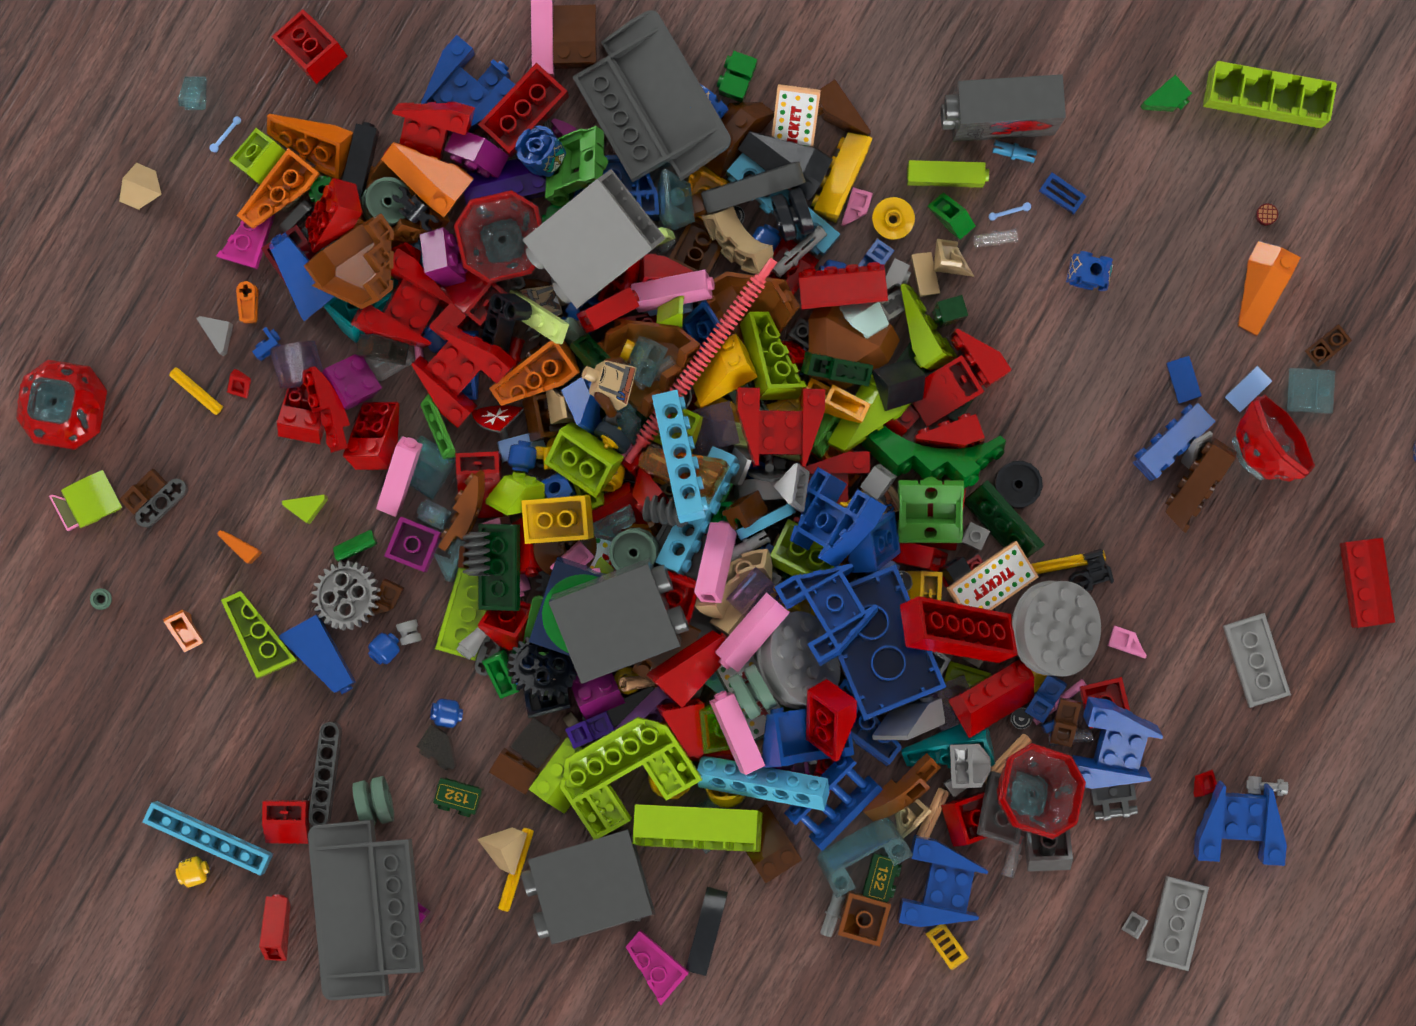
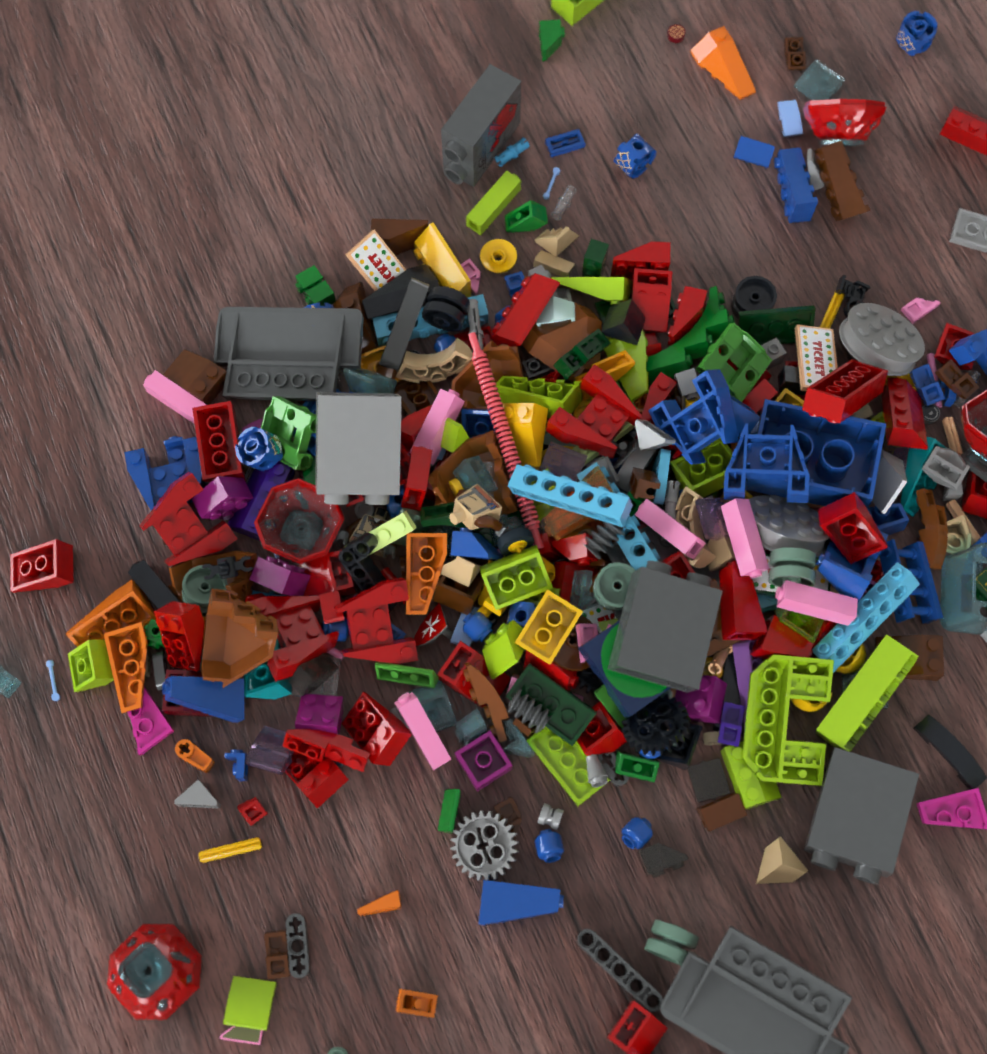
camera: 60 degrees left, 15 degrees down
(139, 186) = (37, 776): tan slope -> none
(259, 641) = (466, 944): lime wedge -> none
(306, 507) = (389, 828): lime slope -> none
(432, 180) = (217, 539): orange wedge -> none
(457, 796) = (712, 872): dark green brick -> none
(512, 880) = (810, 877): yellow axle -> none

